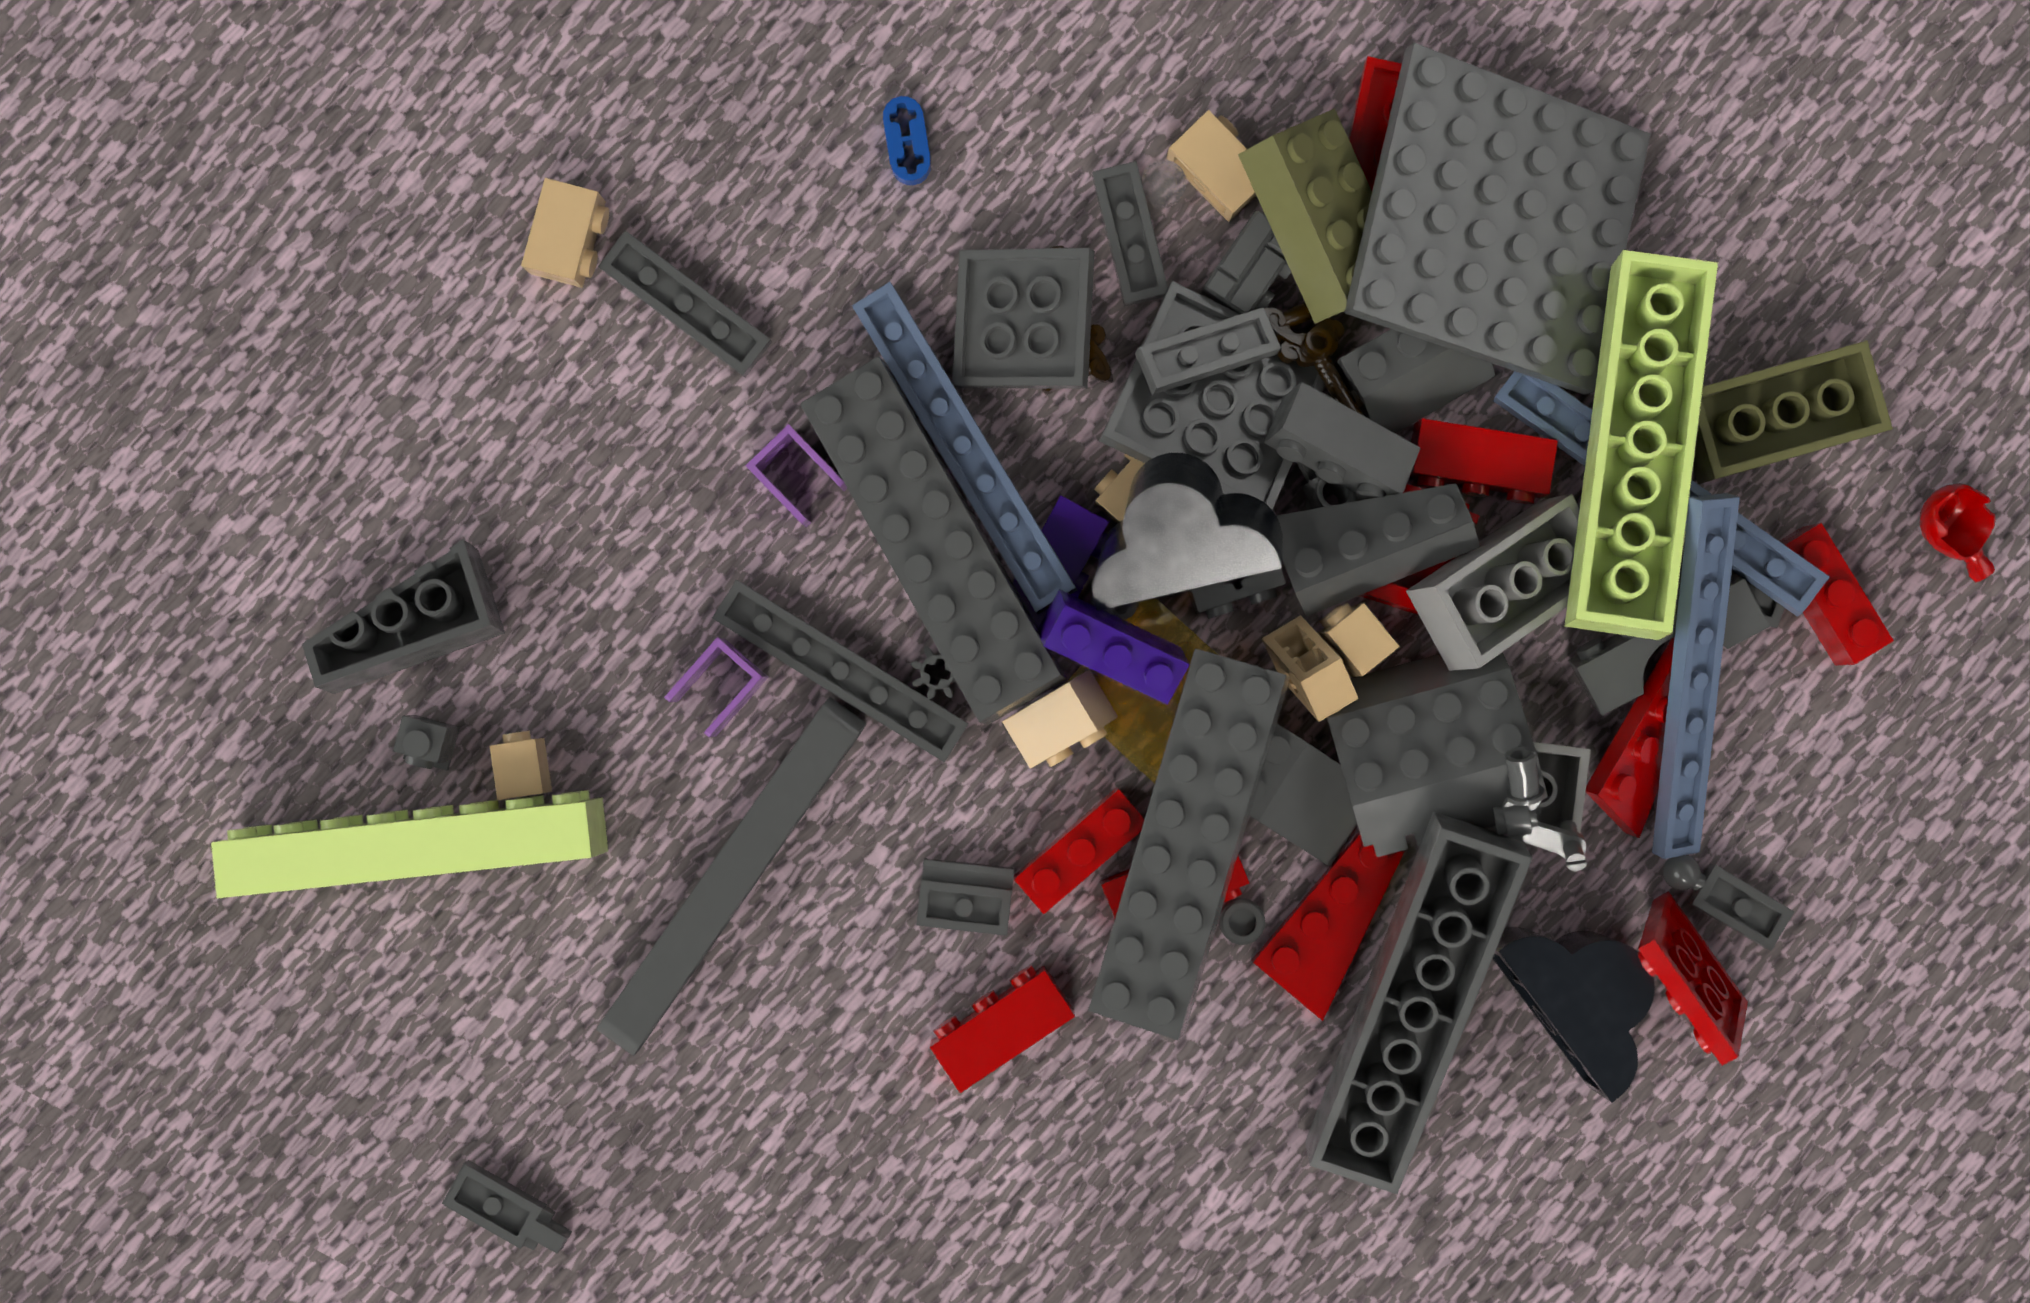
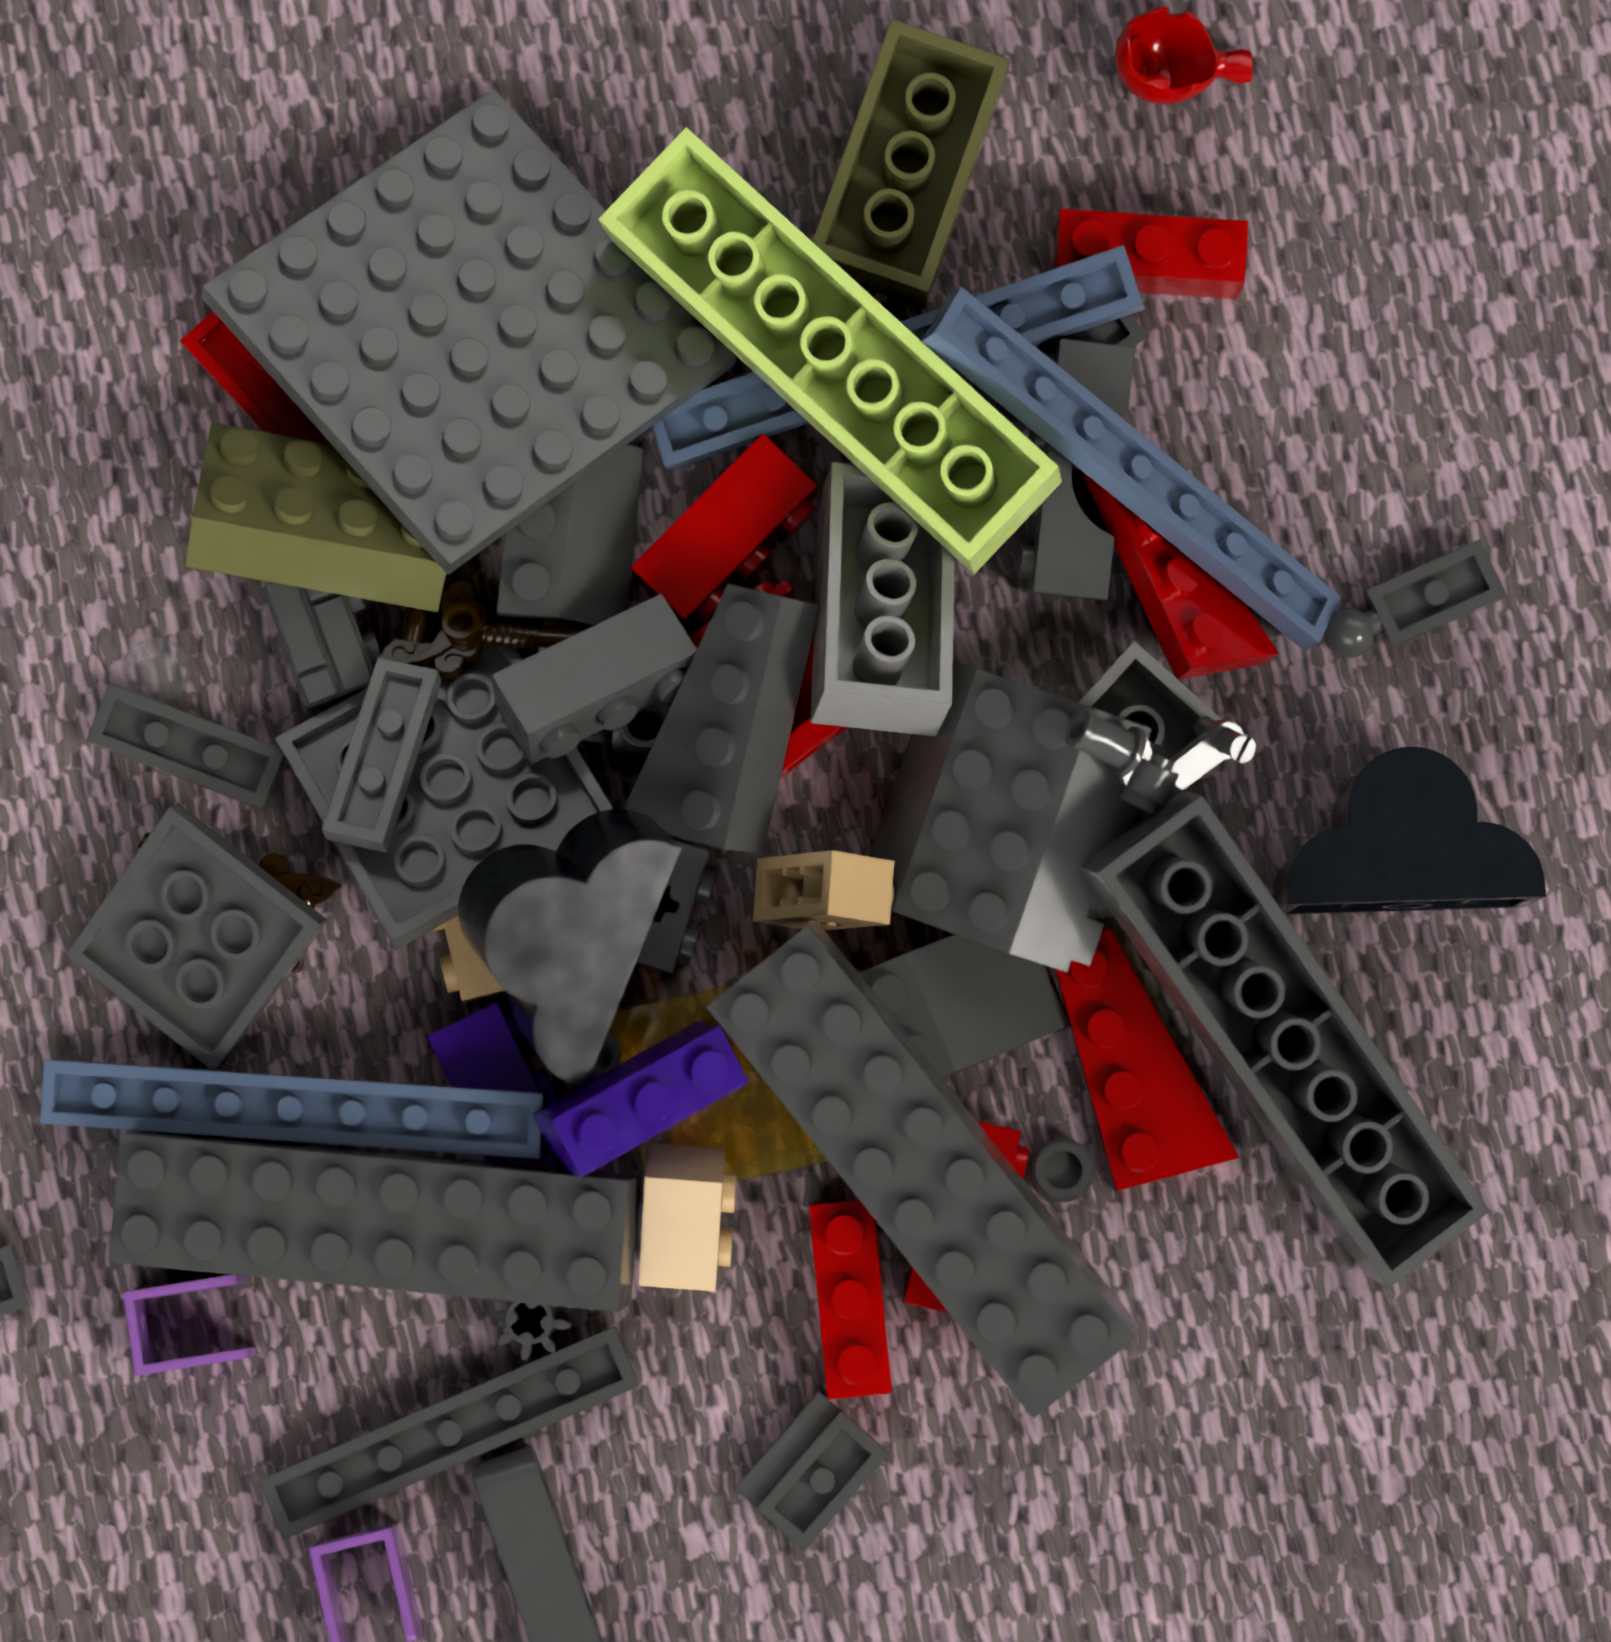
camera: 60 degrees left, 5 degrees down
(1000, 1027) = (989, 1535): red brick -> none
(1212, 164) = (175, 601): tan brick -> none
(1357, 638) = (826, 815): tan brick -> none
(1693, 979) = (1471, 706): red plate -> none

